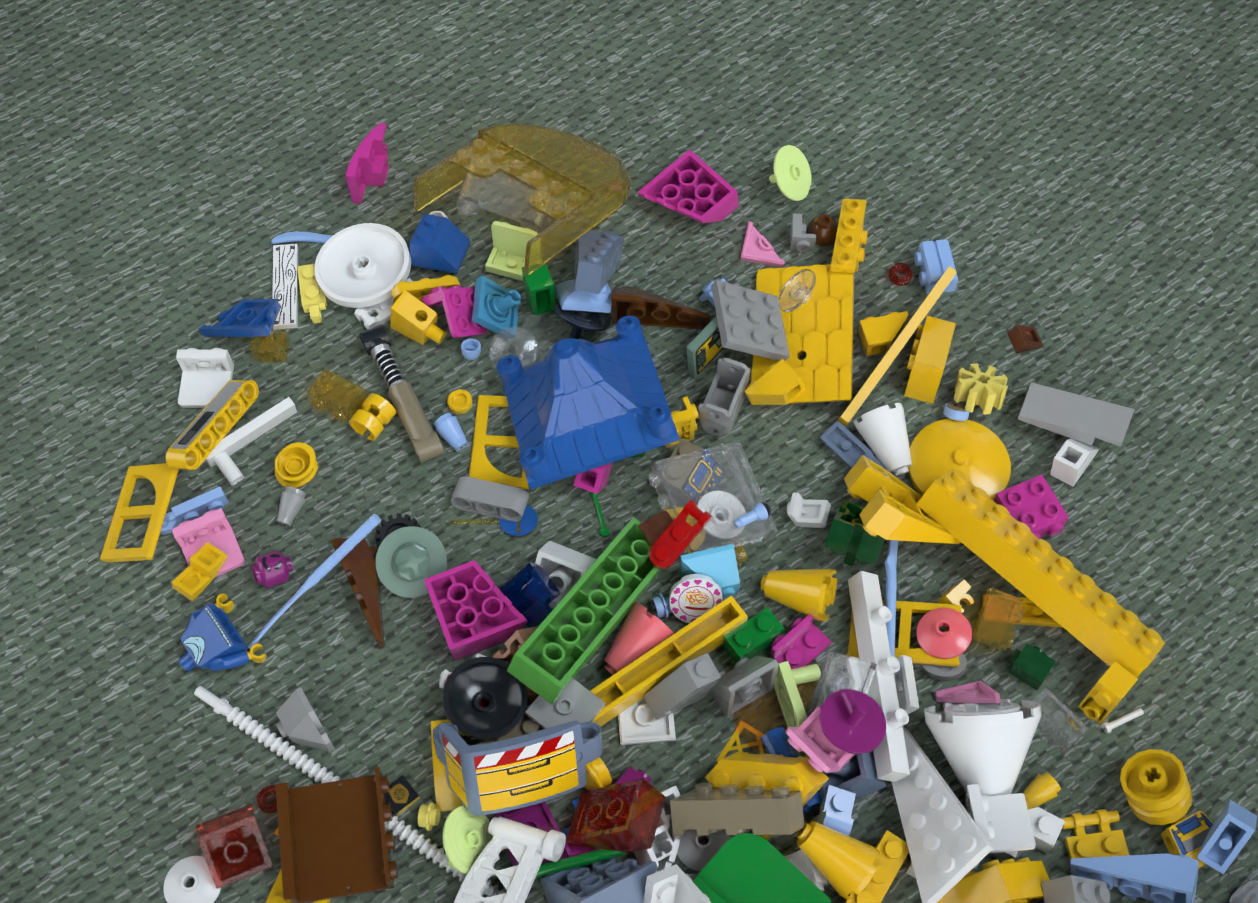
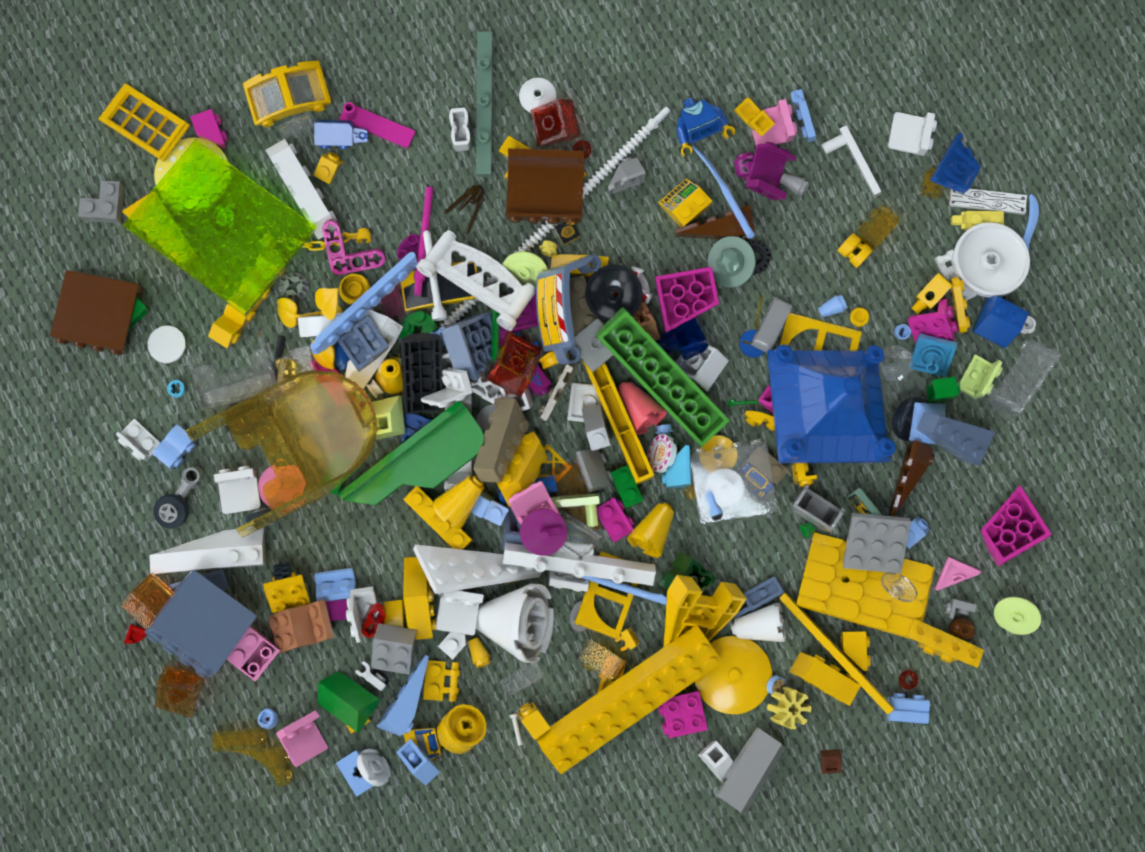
camera: 100 degrees right, 20 degrees up
(163, 480) = (831, 97): yellow window -> none
(212, 424) = (867, 134): yellow beam -> none
(276, 540) = (767, 170): none -> magenta panel
(295, 465) = (827, 191): yellow piece -> none
(335, 638) = (685, 203): none -> yellow slope
(368, 164) = (1088, 277): dark pink slope -> none
(423, 438) = (870, 275): dark tan piece -> none
(571, 177) = (1049, 423): clear yellow windscreen -> none
(620, 486) = (756, 418): none -> yellow slope
(631, 753) = (556, 393): none -> dark tan wing
(655, 526) = (715, 435): copper slope -> none
(678, 536) = (704, 446): red plate -> none
(749, 412) = (807, 529): none -> green piece
(776, 386) = (820, 553): yellow slope -> none
(808, 512) = (715, 551): white bracket -> none
(944, 644) = (597, 629): coral dish -> none
(968, 693) = (555, 626): bright pink tile -> none
(1031, 665) = (567, 676): dark green brick -> none

